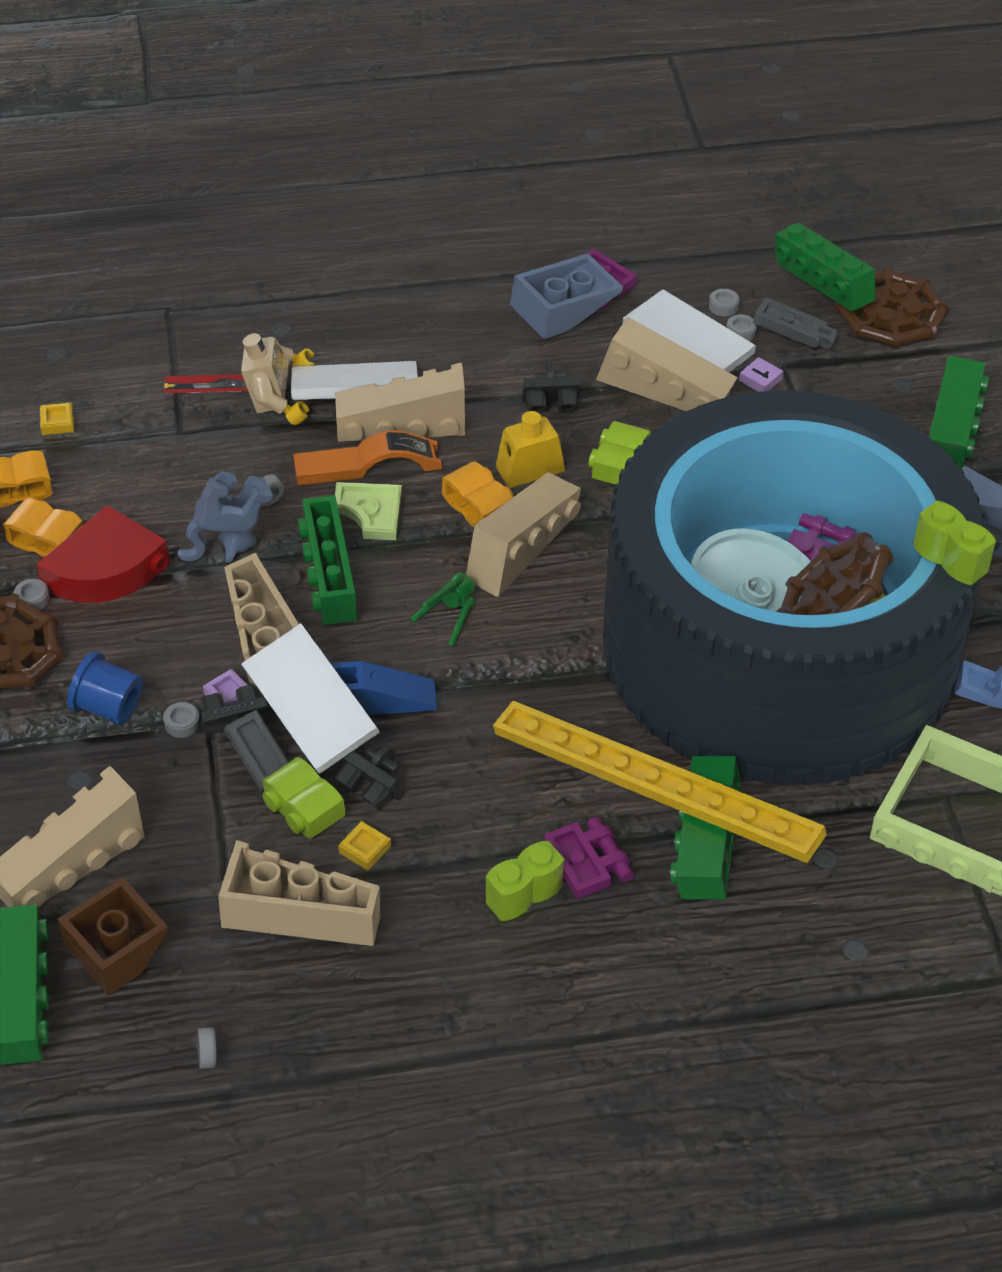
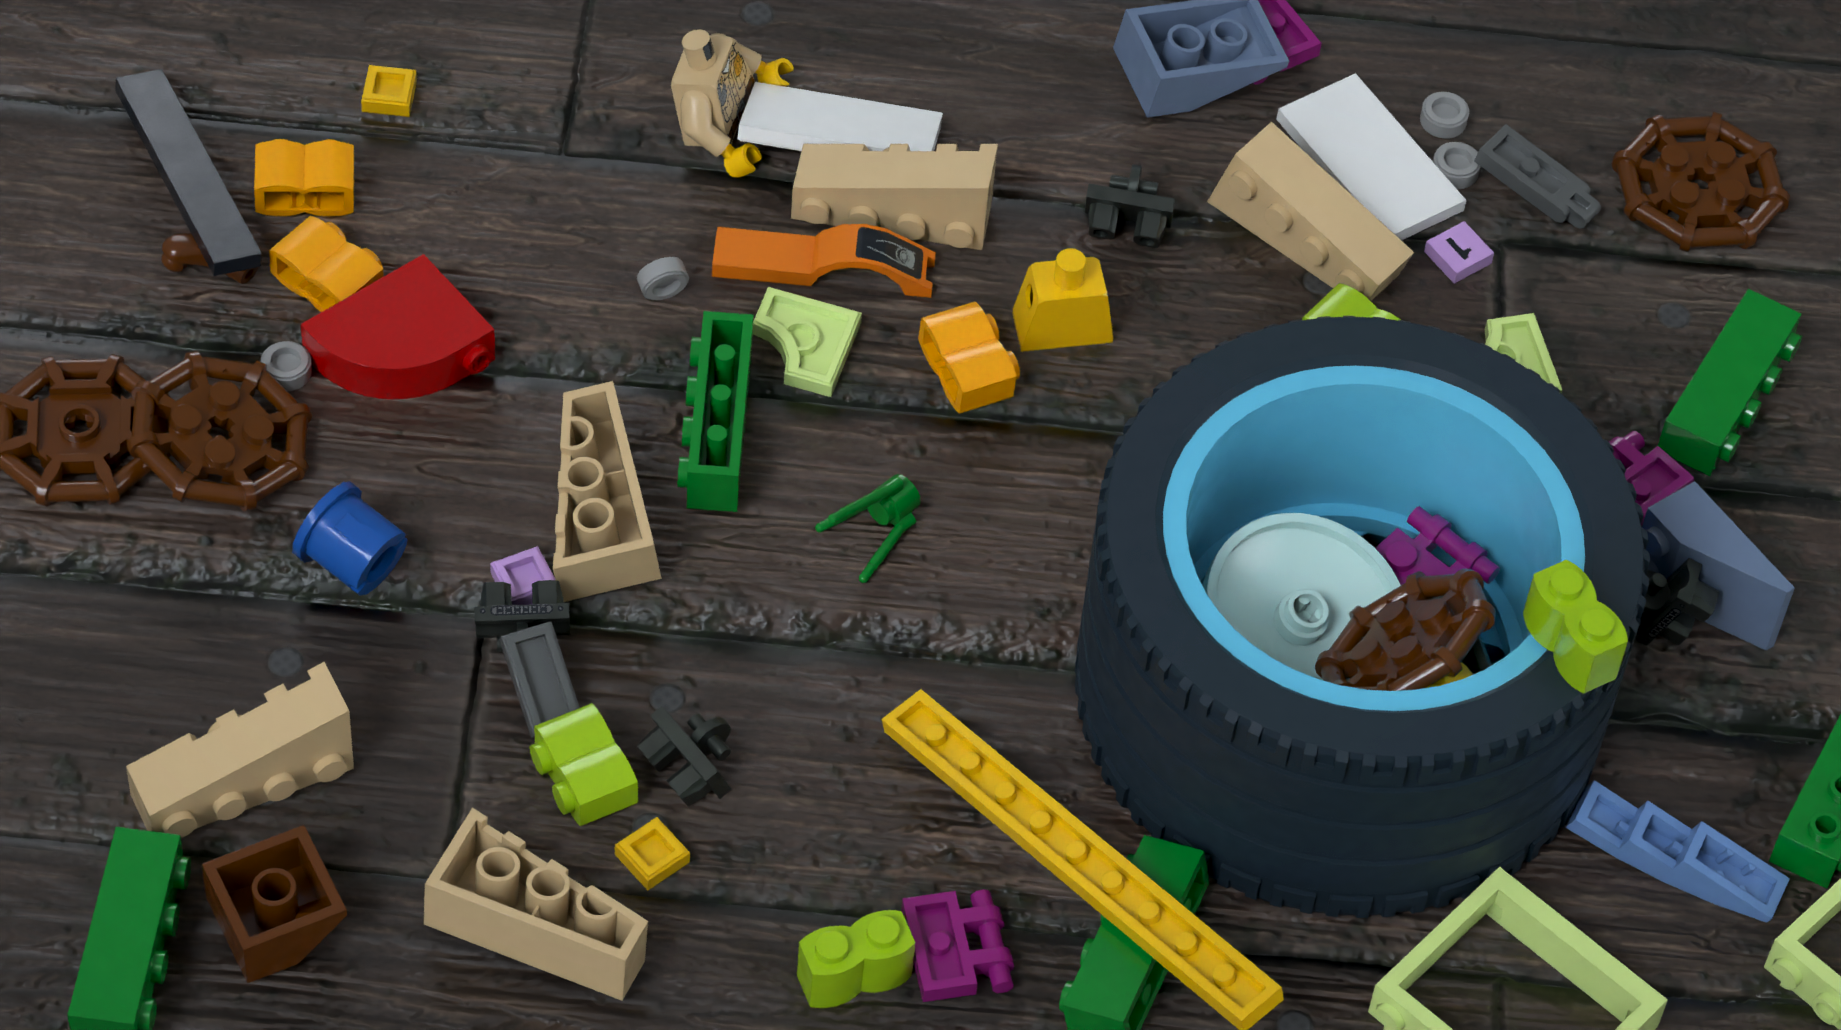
camera: 10 degrees right, 5 degrees up
(181, 720) = (448, 606): light grey tile -> none
(204, 383) = (616, 78): sticker -> none
(226, 513) = (588, 310): sand blue animal -> none
(310, 698) = (629, 623): white tile -> none
(386, 689) = (728, 627): blue slope -> none
(520, 531) = (1012, 428): tan wedge -> none
(614, 449) = (1197, 325): lime brick -> none
(825, 266) = (1614, 93): green brick -> none

